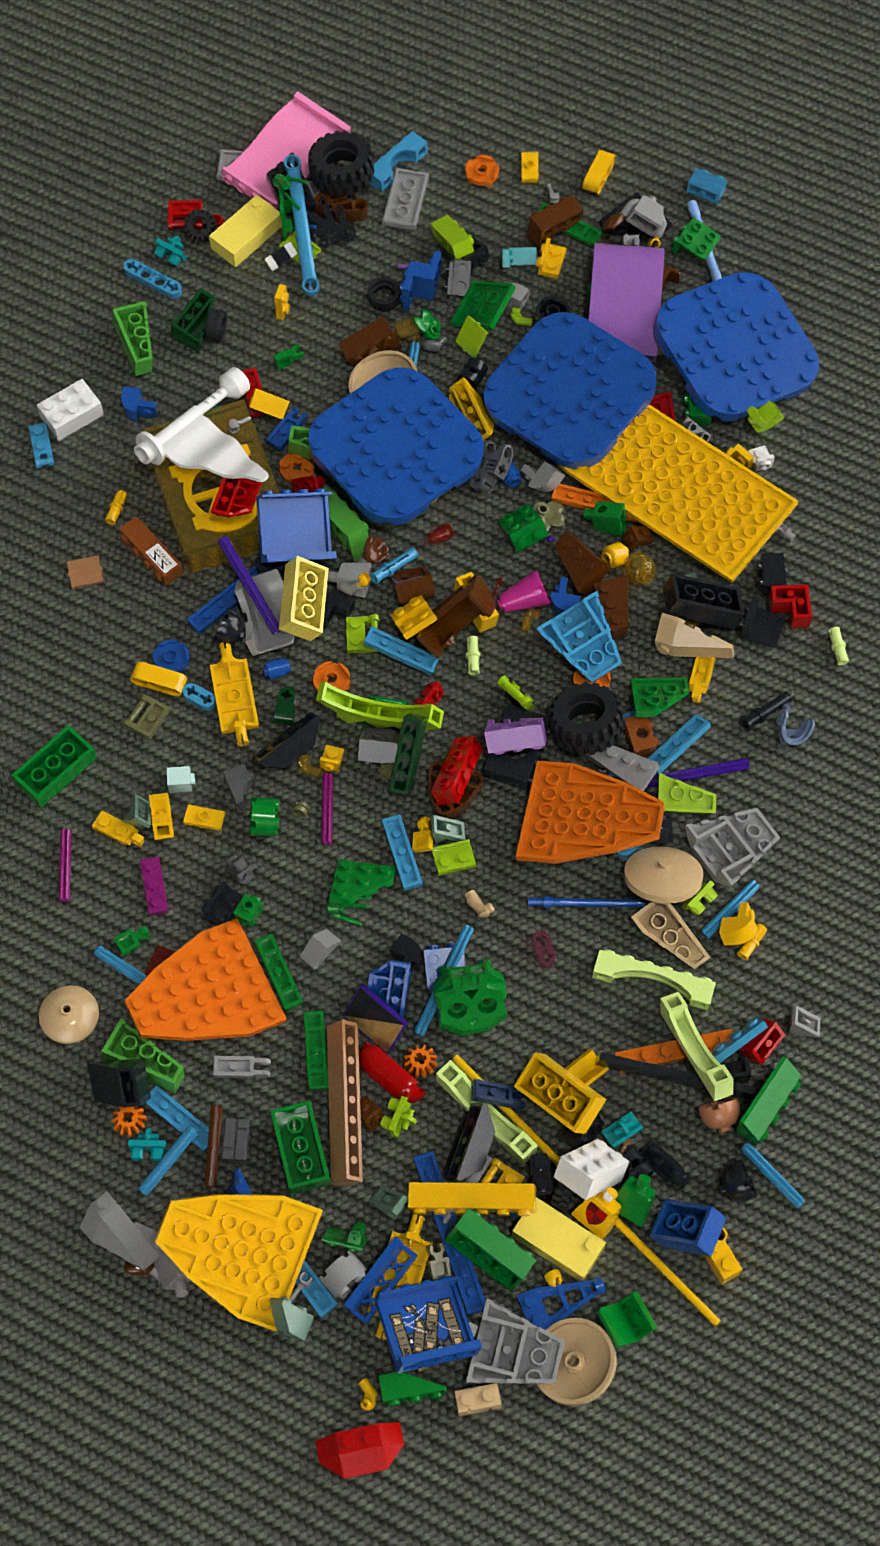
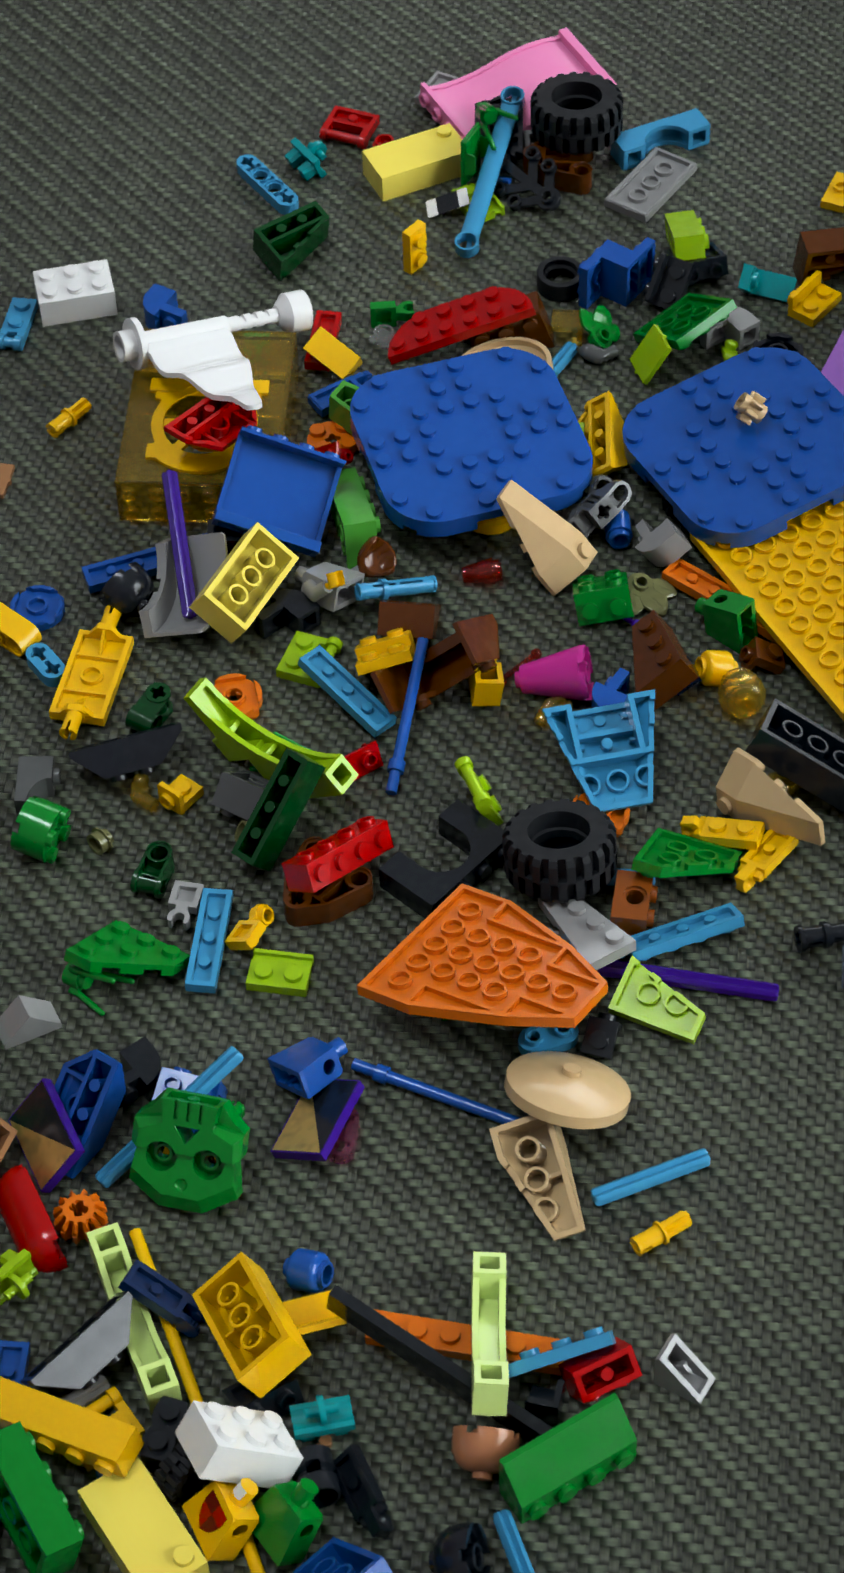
camera: 25 degrees right, 15 degrees down
(133, 332) = (207, 232): bright green wedge -> none
(151, 551) = (82, 478): dark orange brick -> none
(192, 218) = (351, 130): black tyre -> none
(216, 324) = (315, 250): black tyre -> none
(234, 424) = (263, 354): light grey hand -> none
(276, 668) = (166, 661): blue brick -> none
(291, 372) = (382, 336): none -> clear plate
(327, 801) = (132, 860): magenta axle -> none
(339, 352) = (459, 321): none -> red plate
(345, 820) = (154, 870): none -> dark green piece
(374, 831) = (183, 901): none -> light grey plate
(447, 828) = (283, 926): sand green slope -> none
(455, 691) = (396, 764): none -> blue bar
(472, 655) = (446, 729): yellowish green pin -> none
(473, 372) = (630, 394): black wheel -> none
(475, 903) = (276, 1035): tan arm -> none
(478, 501) = (552, 543): none -> tan wedge
(482, 178) = (761, 182): orange plate -> none
(505, 915) = (308, 1065): none -> blue torso
(515, 735) = (441, 836): medium lavender wedge -> none
(527, 946) = (317, 1122): none -> tile
(565, 367) = (750, 408): none -> tan gear
(568, 1043) = (308, 1271): none -> blue head
(615, 602) = (681, 727): reddish brown wedge -> none
(671, 667) = (724, 831): none -> yellow hinge
(693, 903) = (596, 1147): lime hips -> none
(694, 989) = (428, 1190): yellowish green arch -> none
(731, 844) = (696, 1086): light grey wedge -> none
(740, 928) = (647, 1203): yellow brick -> none

